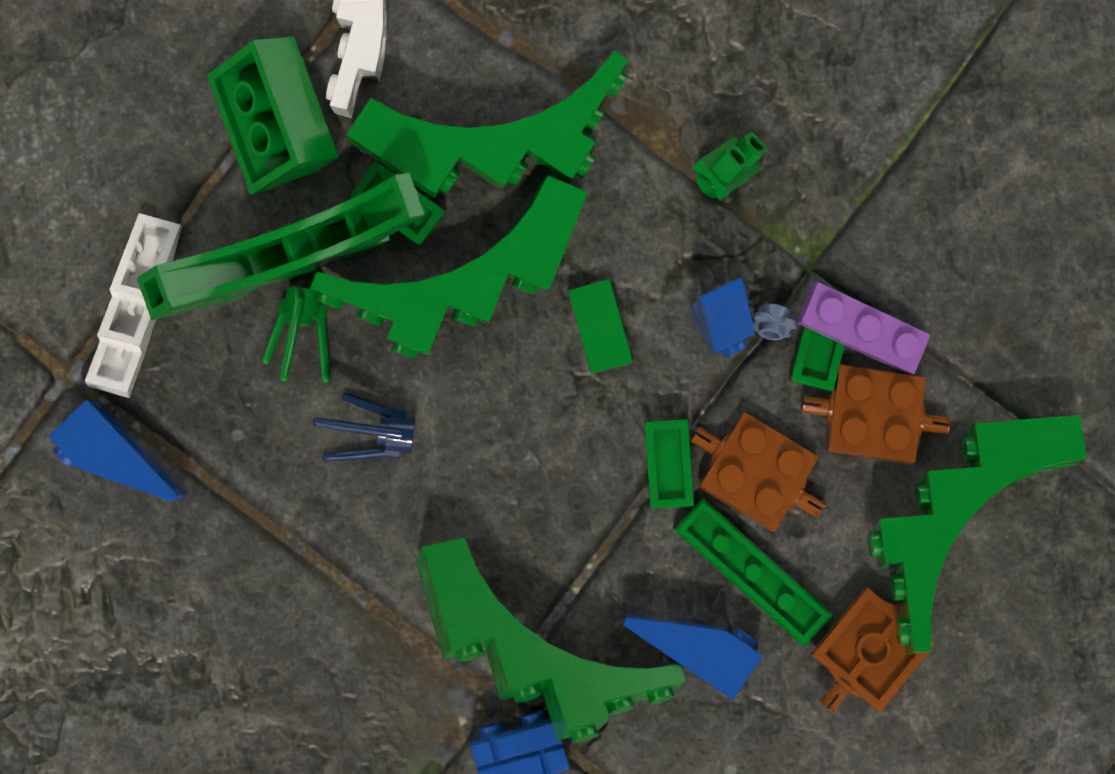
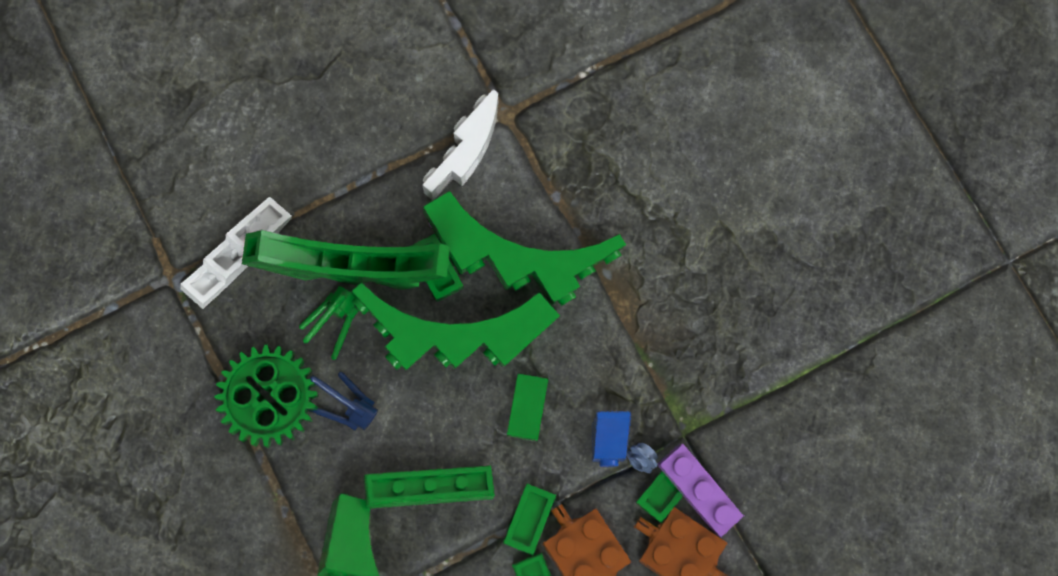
camera: 25 degrees right, 10 degrees down
(102, 447) = (169, 331): blue slope -> none
(256, 505) = (247, 416): none -> green gear
(271, 114) = (384, 174): green slope -> none
(526, 485) = (428, 486): none -> green tile
(729, 166) = (660, 342): green hips -> none

